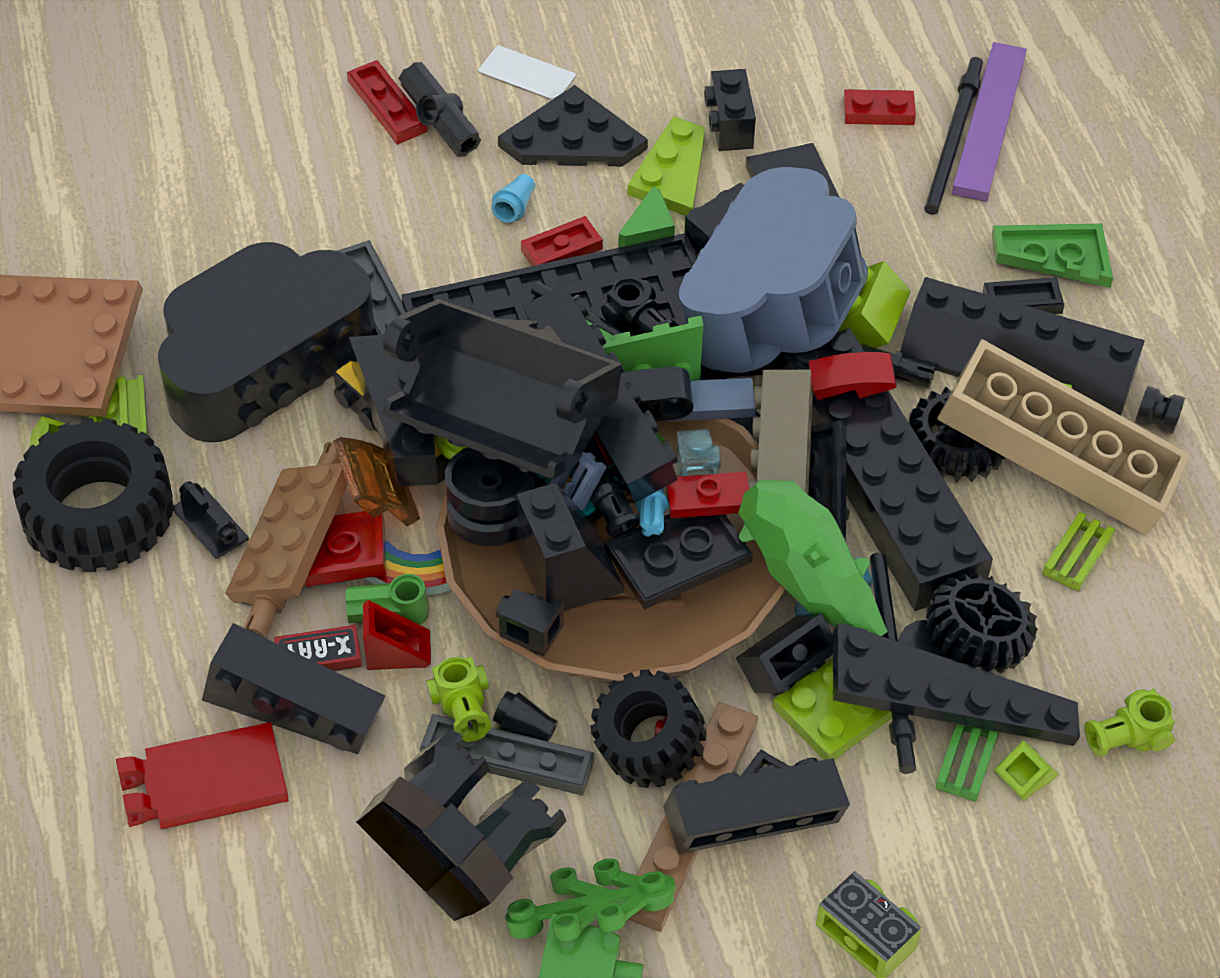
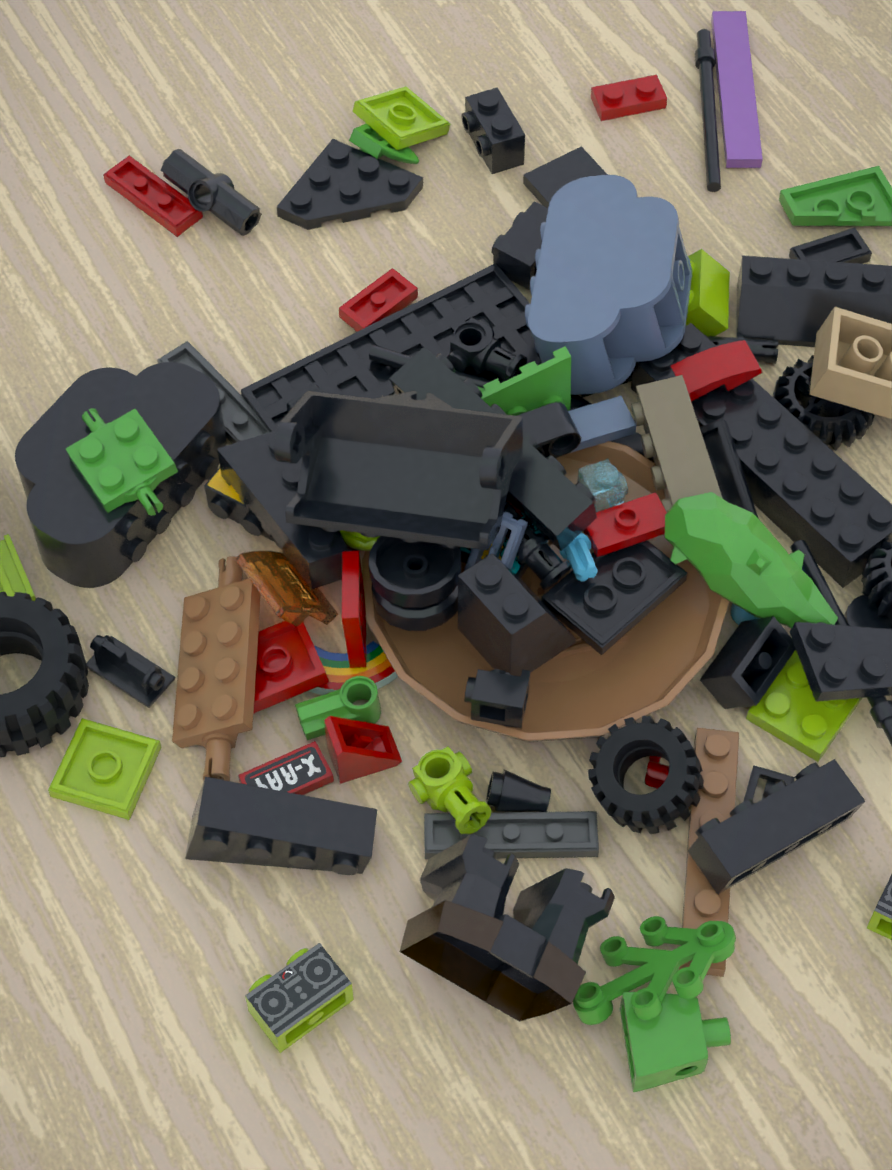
camera: 15 degrees left, 5 degrees up
(157, 602) = (105, 768): none -> lime tile
(204, 777) = (219, 940): red tile -> none
(257, 328) = (122, 461): none -> bright green plate
(257, 843) = (299, 996): none -> brick
(424, 512) = (353, 609): none -> red tile
(512, 200) = (314, 268): medium azure cone -> none
(526, 72) = (279, 136): white sticker -> none
(617, 97) = (375, 145): none -> bright green plate
(647, 79) = (401, 117): none -> lime tile
(648, 221) = (457, 259): bright green slope -> none
(672, 166) = (456, 201): lime wing -> none

